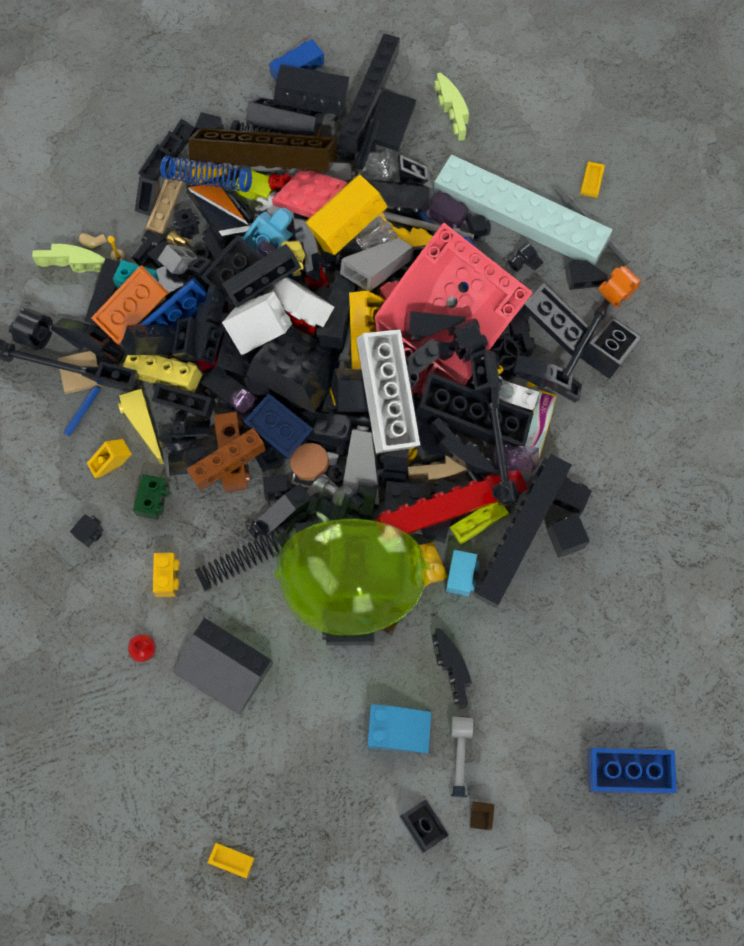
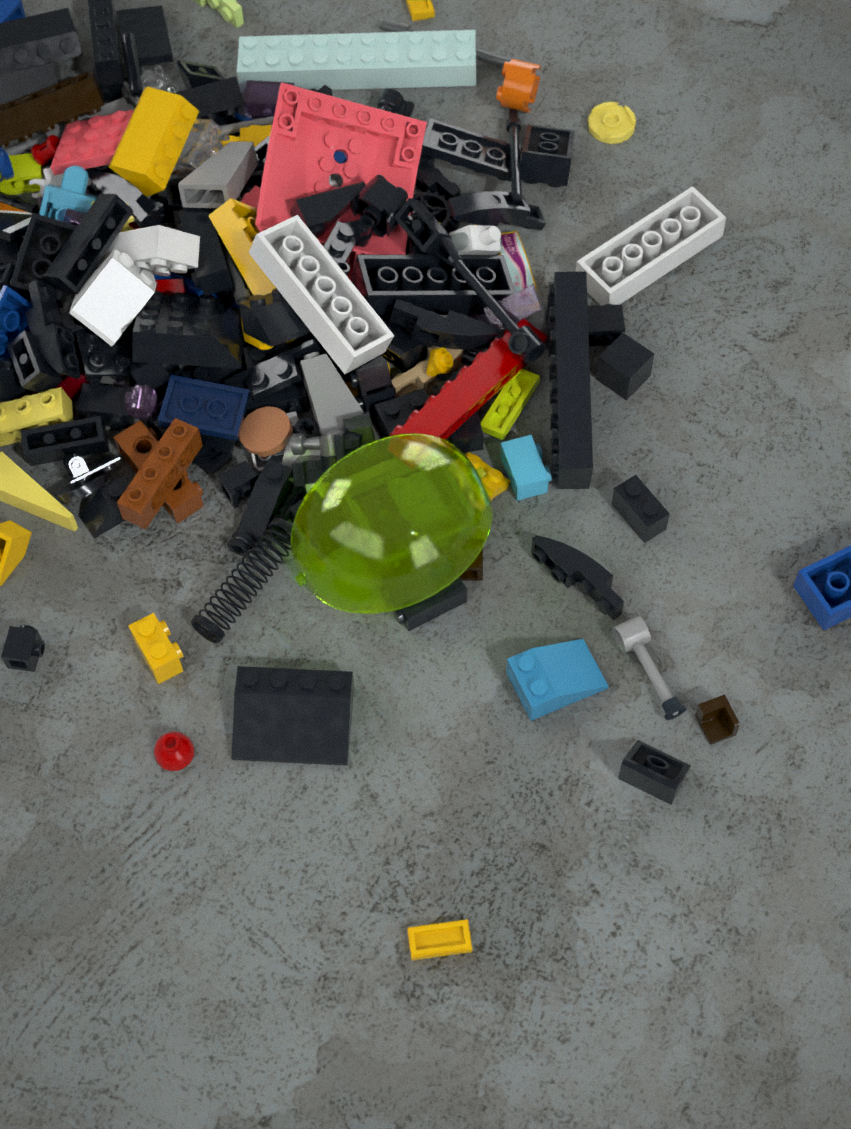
camera: 25 degrees left, 10 degrees down
(151, 497) = (84, 569): dark green brick -> none
(446, 471) = (439, 362): none -> yellow plate
(518, 643) = (640, 508): none -> black brick
(584, 275) = (470, 95): black slope -> none
(637, 457) = (651, 247): none -> white brick
(670, 344) = (611, 123): none -> light yellow tile

